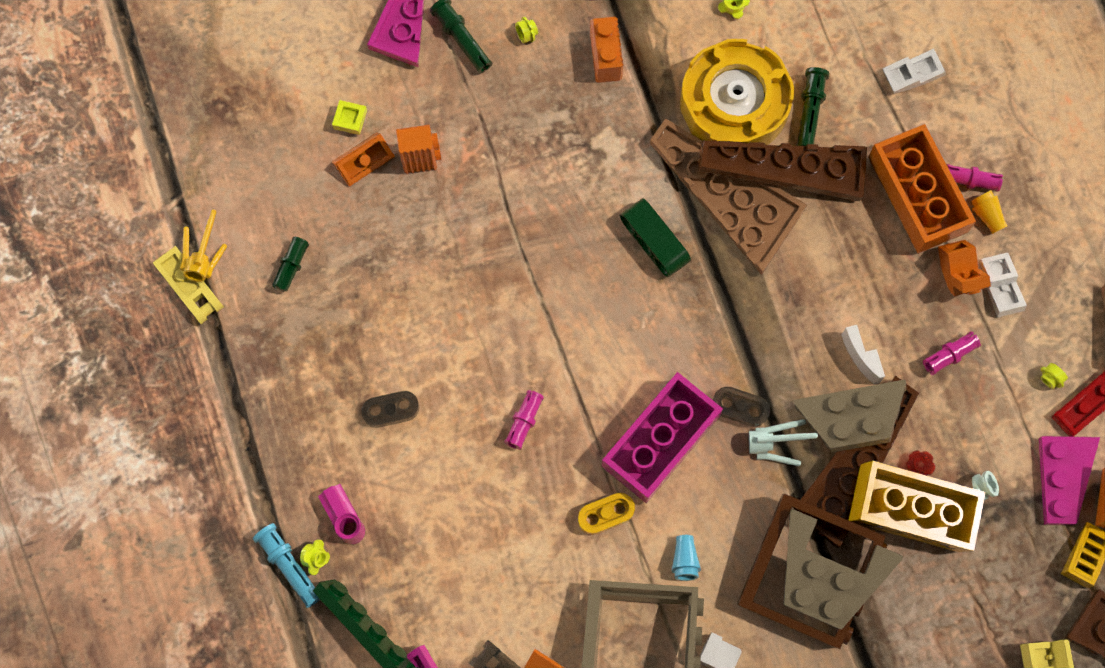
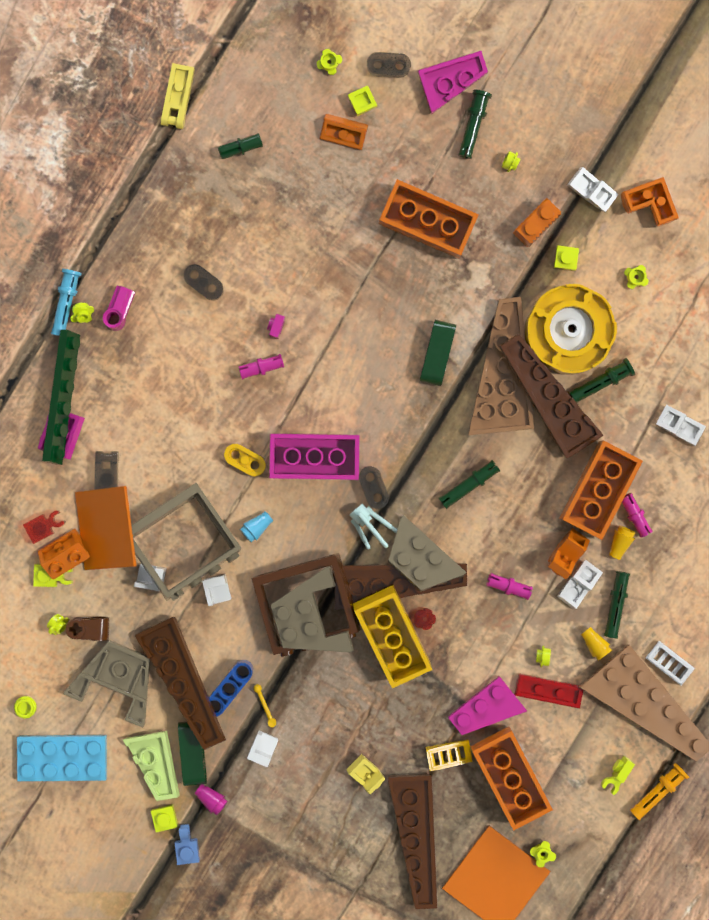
camera: 45 degrees right, 15 degrees up
(197, 265) = (191, 92): yellow plant -> none
(285, 112) = (335, 60): none -> neon yellow plate
(335, 67) = (388, 63): none -> clear smoke plate
(418, 148) = (374, 162): orange brick -> none
(495, 371) = (275, 326): none -> dark pink plate
(516, 142) = (428, 219): none -> orange brick
(661, 52) = (566, 258): none -> neon yellow plate
(814, 301) = (469, 484): none -> dark green pin
(868, 361) = (462, 541): white slope -> none
(986, 483) = (441, 666): light aqua bush -> none
(1052, 264) = (621, 580): none -> dark green pin
(1080, 315) = (596, 644): none -> yellow cone

